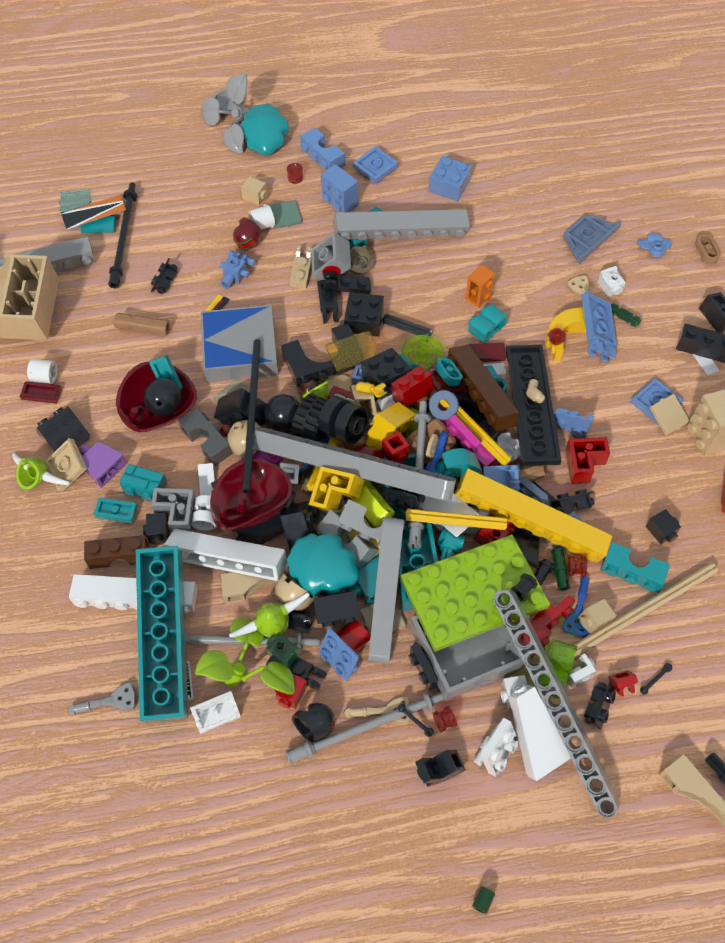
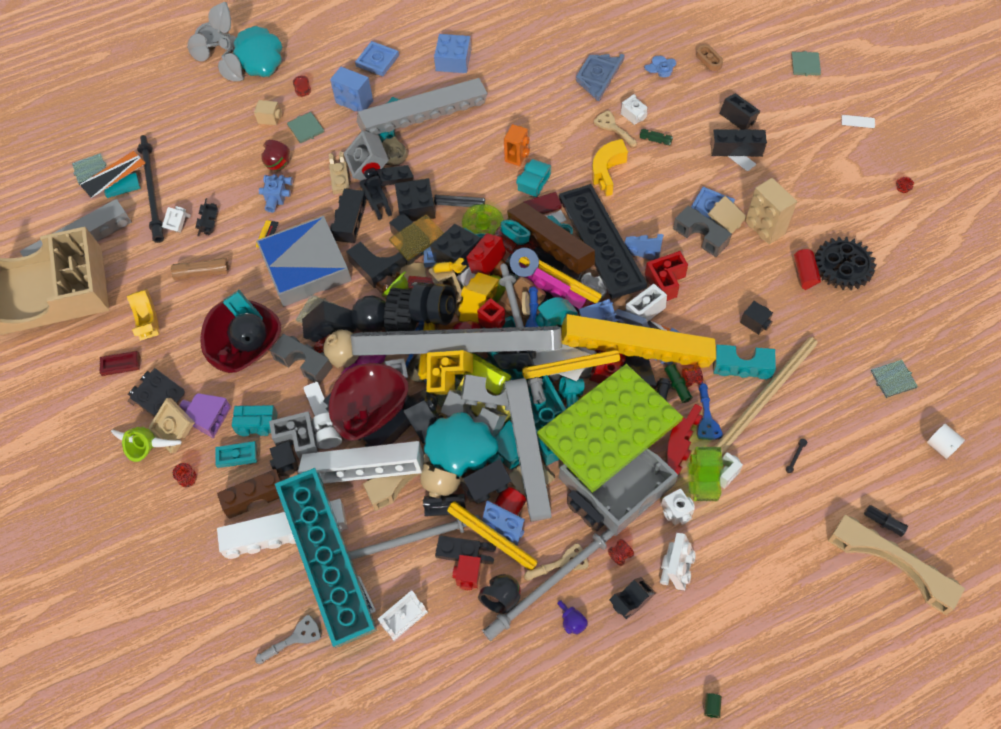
camera: 15 degrees left, 0 degrees up
(42, 371) = (114, 341): white piece -> none
(66, 519) = (188, 478): none -> clear red wheel
(77, 353) = (144, 314): none -> yellow arch
(135, 270) = (175, 218): none -> white bracket
(215, 664) = (391, 570): lime plant -> none
(251, 417) = (343, 326): black piece -> none
(262, 217) = (285, 134): white piece -> none
(271, 618) = (427, 510): lime helmet -> none
(284, 656) = (452, 541): clear green brick -> none
(296, 311) = (348, 215): none -> black brick
(314, 145) = (310, 53): medium blue arch -> none
(325, 663) = (492, 536): none -> yellow axle
(376, 770) = (573, 621): none -> dark purple piece
(427, 731) = (608, 569): black hinge -> none
(524, 586) = (655, 408): black bush -> none
(533, 393) = (599, 229): tan arm -> none
(537, 735) = (712, 540): white slope -> none
(554, 339) = (603, 172): clear red plate -> none
(556, 480) = (648, 303): none -> white brick
(566, 502) = (675, 314): black hinge -> none
(576, 753) = (722, 511): light grey beam -> none
(596, 616) = (726, 415): tan brick -> none
(599, 327) = (638, 153): medium blue tile -> none
(604, 697) = (757, 486): black hinge -> none
(623, 680) = (769, 465): red tile -> none
(631, 411) = (692, 221): none -> dark grey arch

